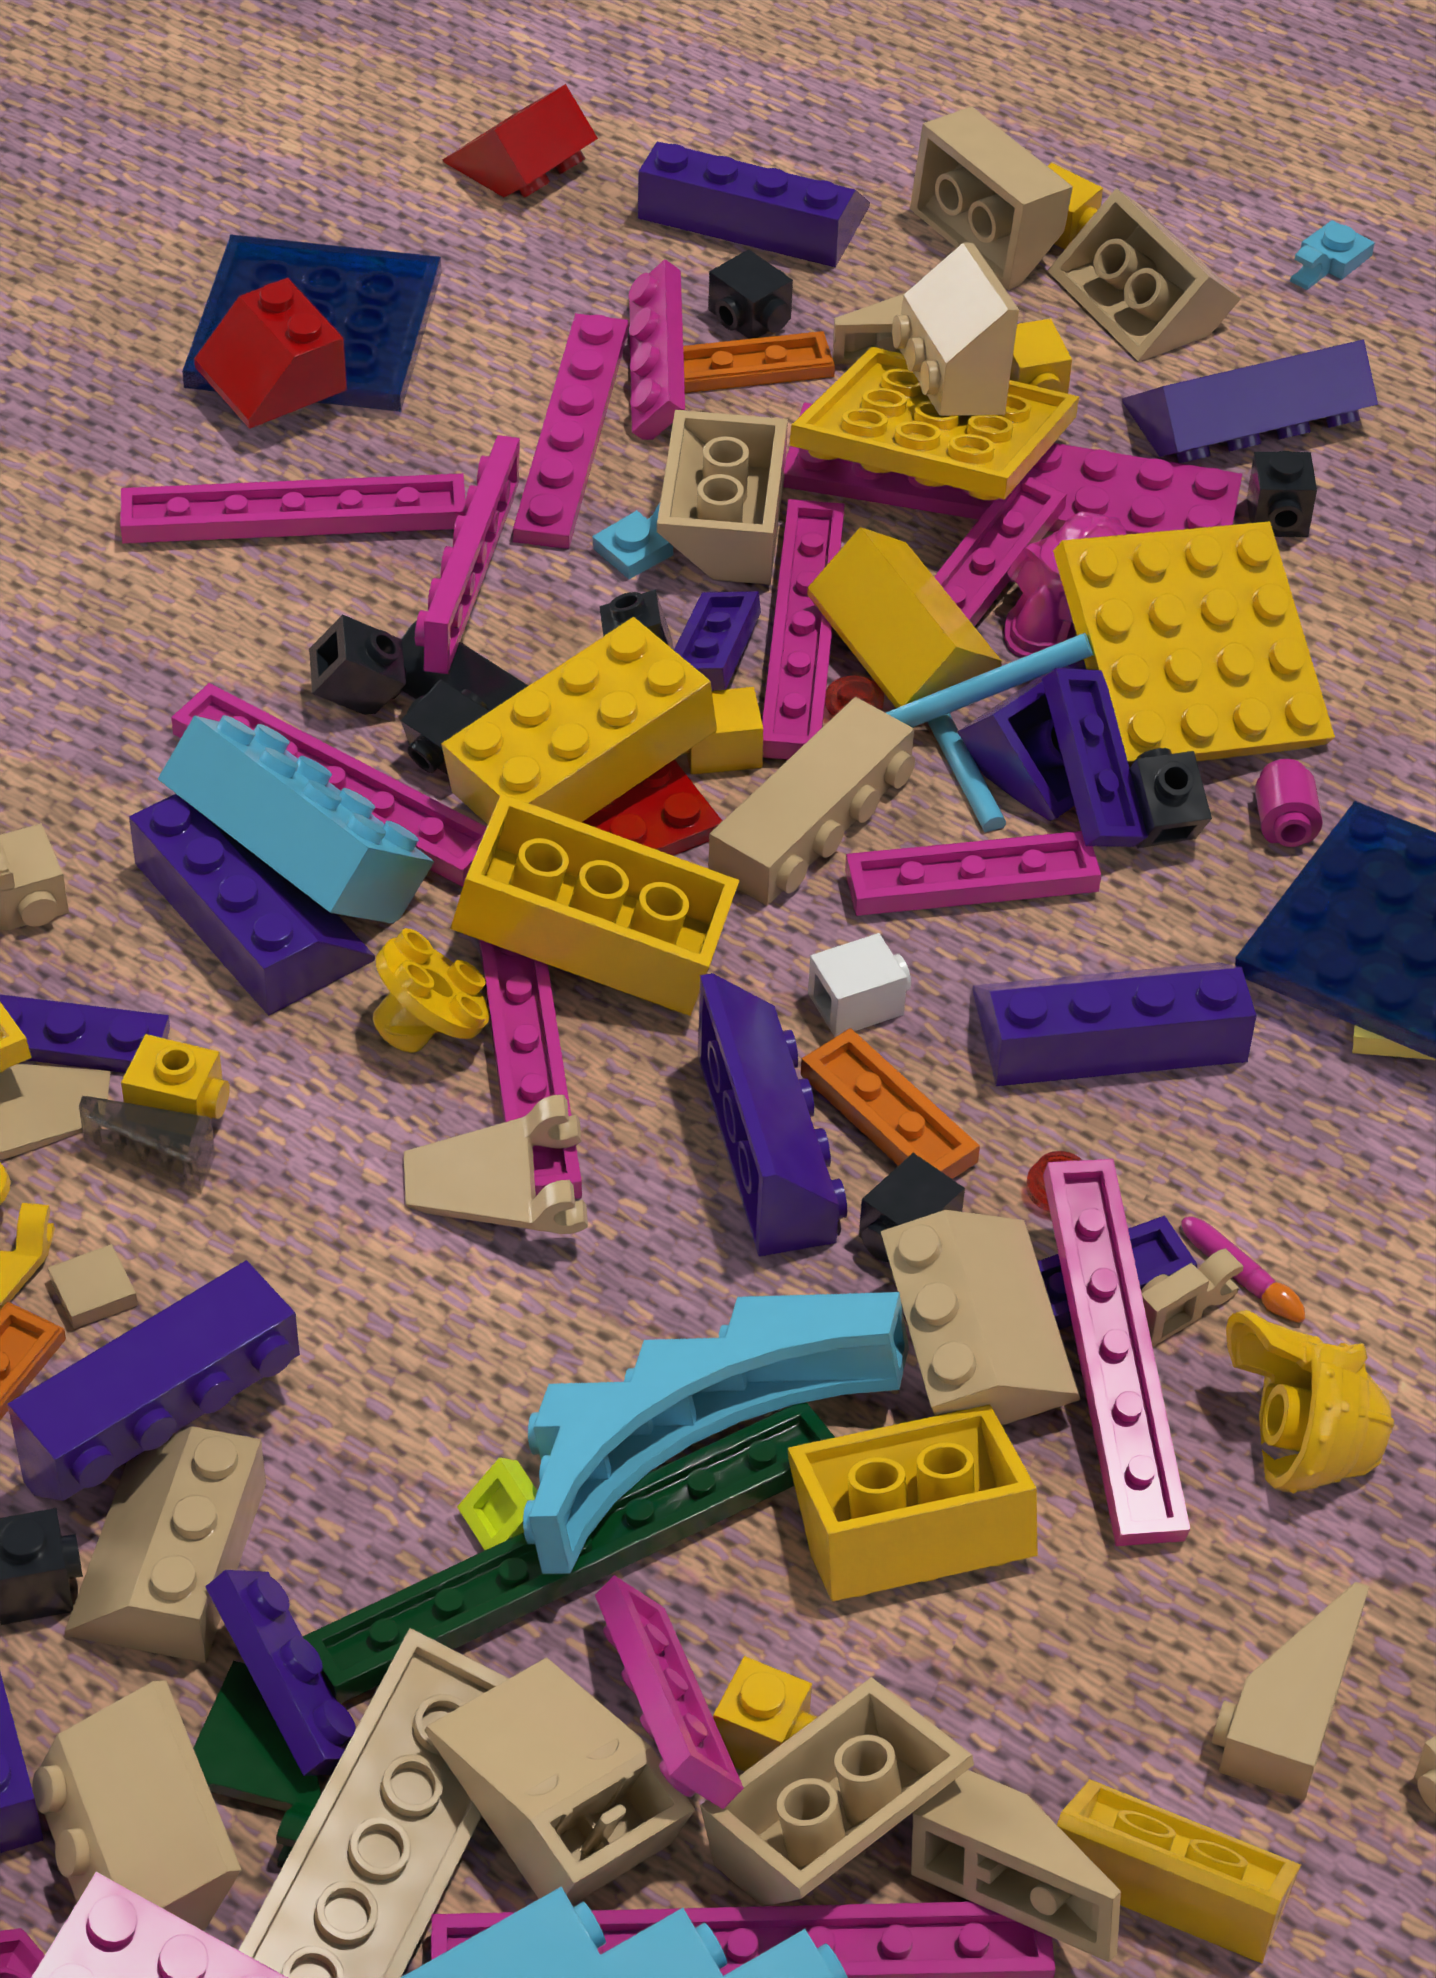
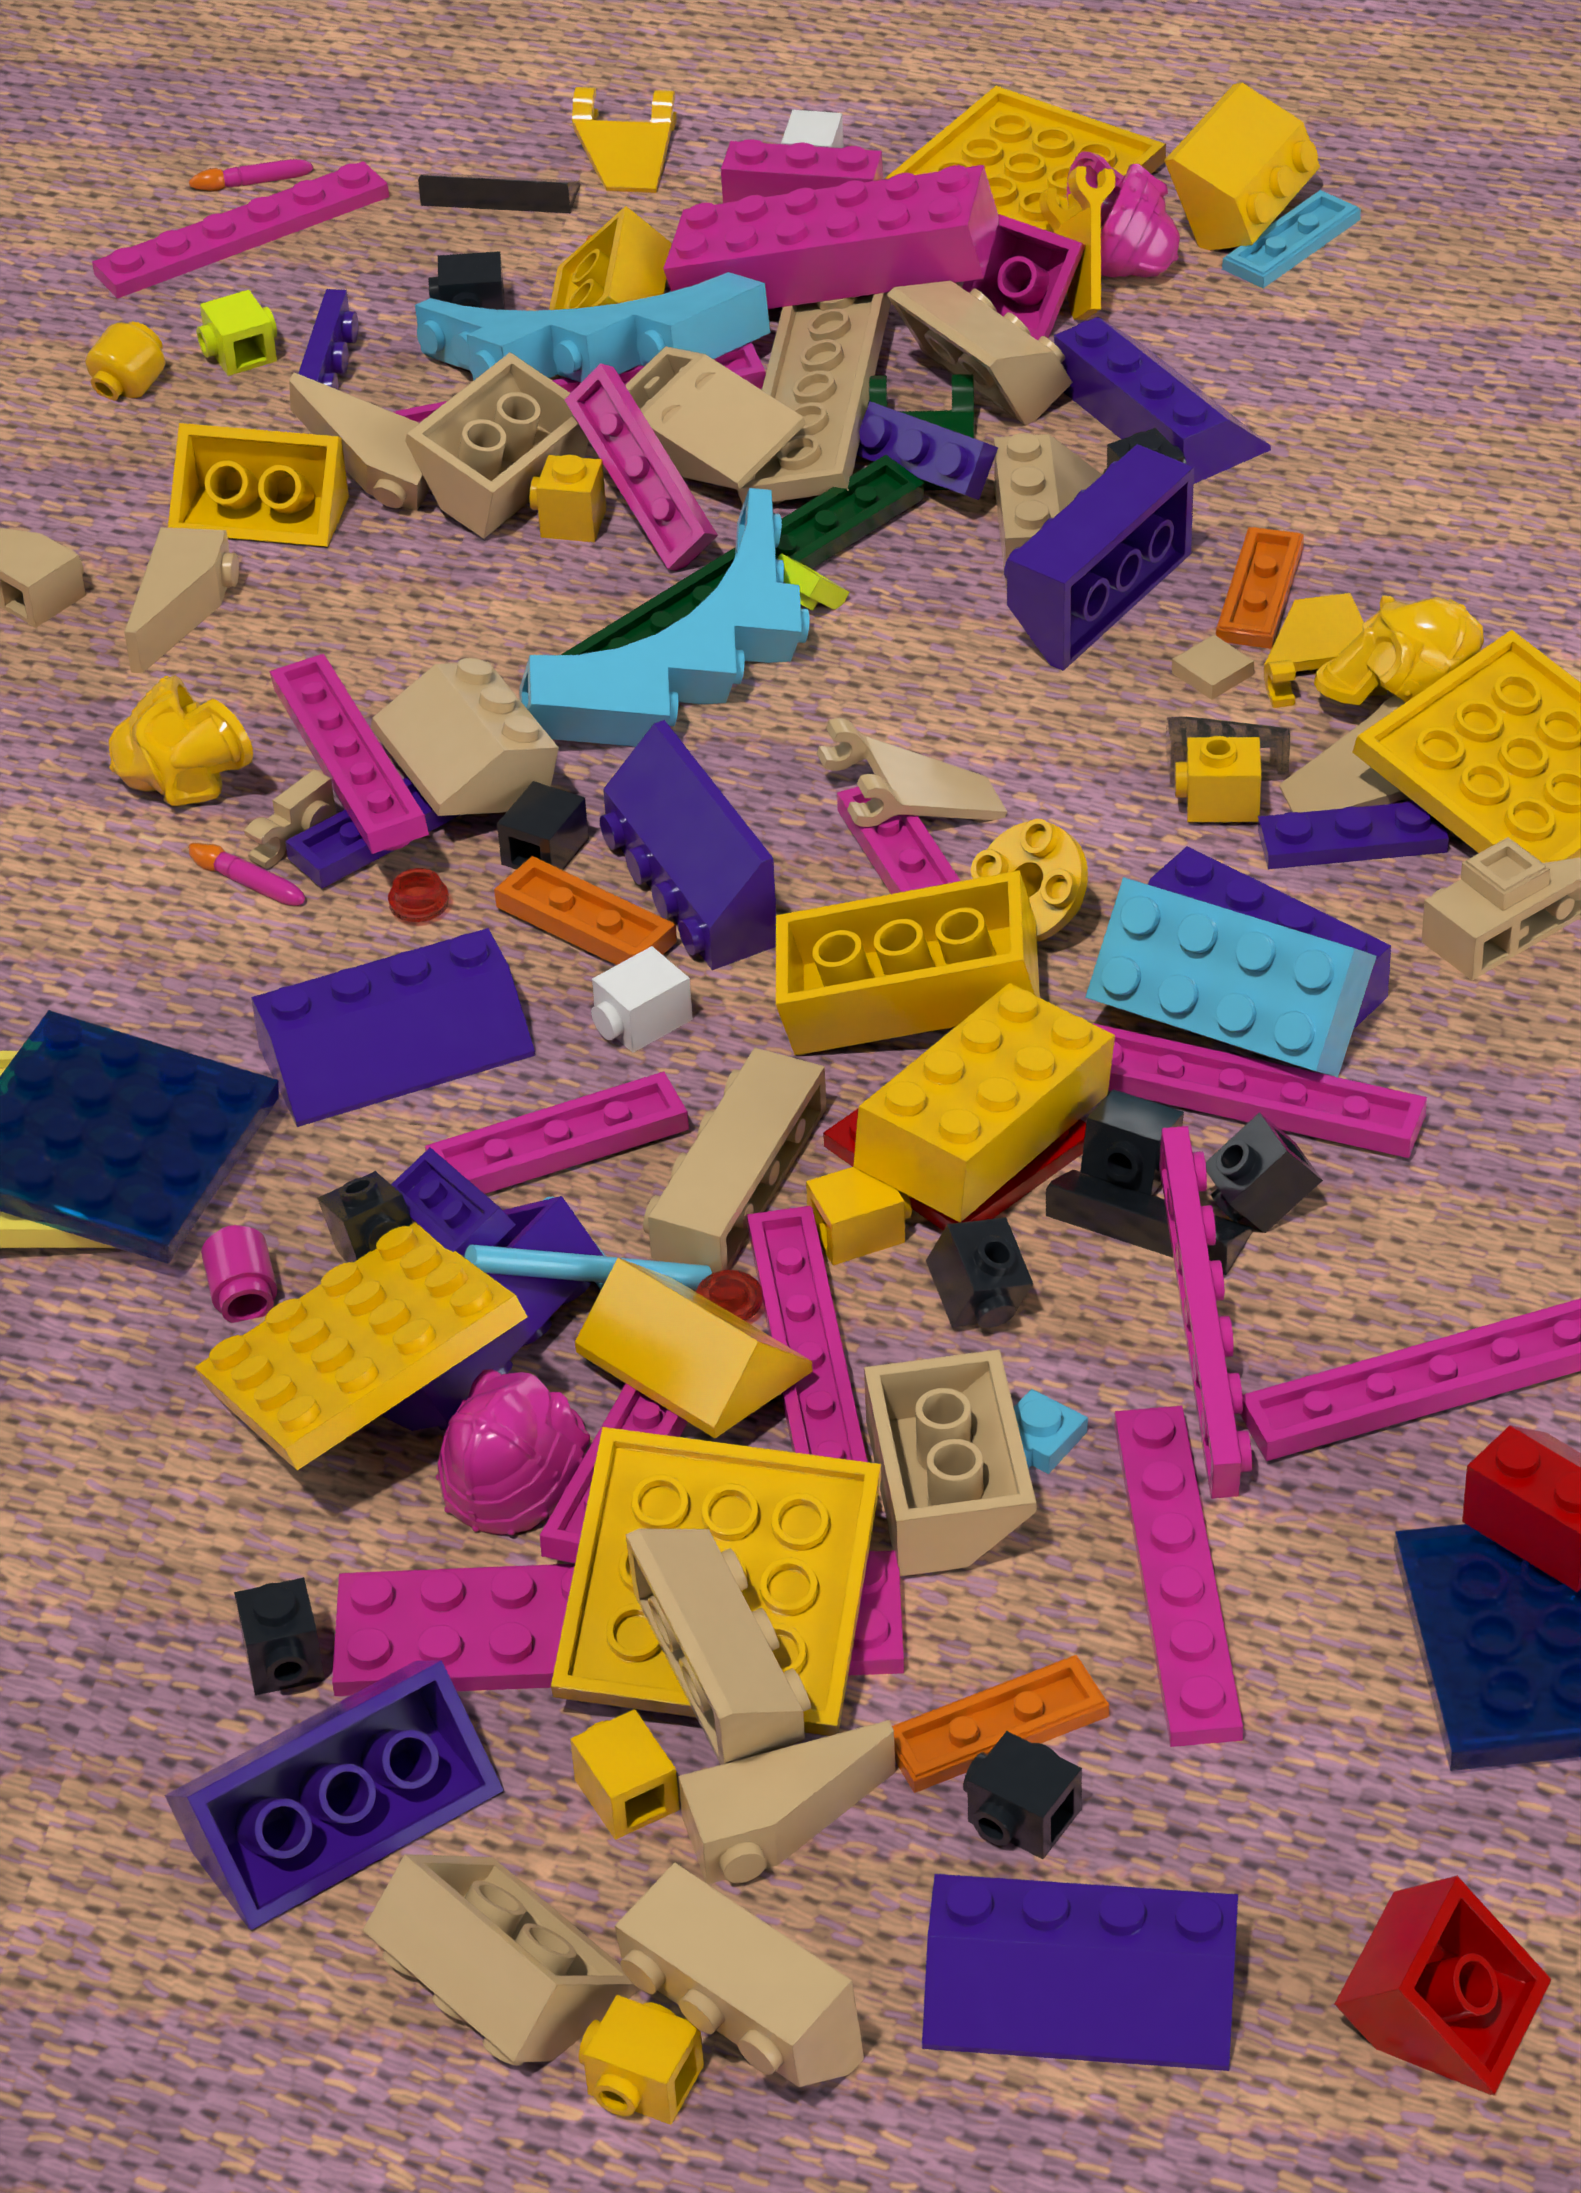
camera: 170 degrees right, 5 degrees down
(656, 350) = (1118, 1693): dark pink plate -> none
(719, 633) = (896, 1279): dark purple plate -> none
(914, 1502) = (490, 615): yellow slope -> none
(1331, 250) = (246, 2106): medium azure plate -> none

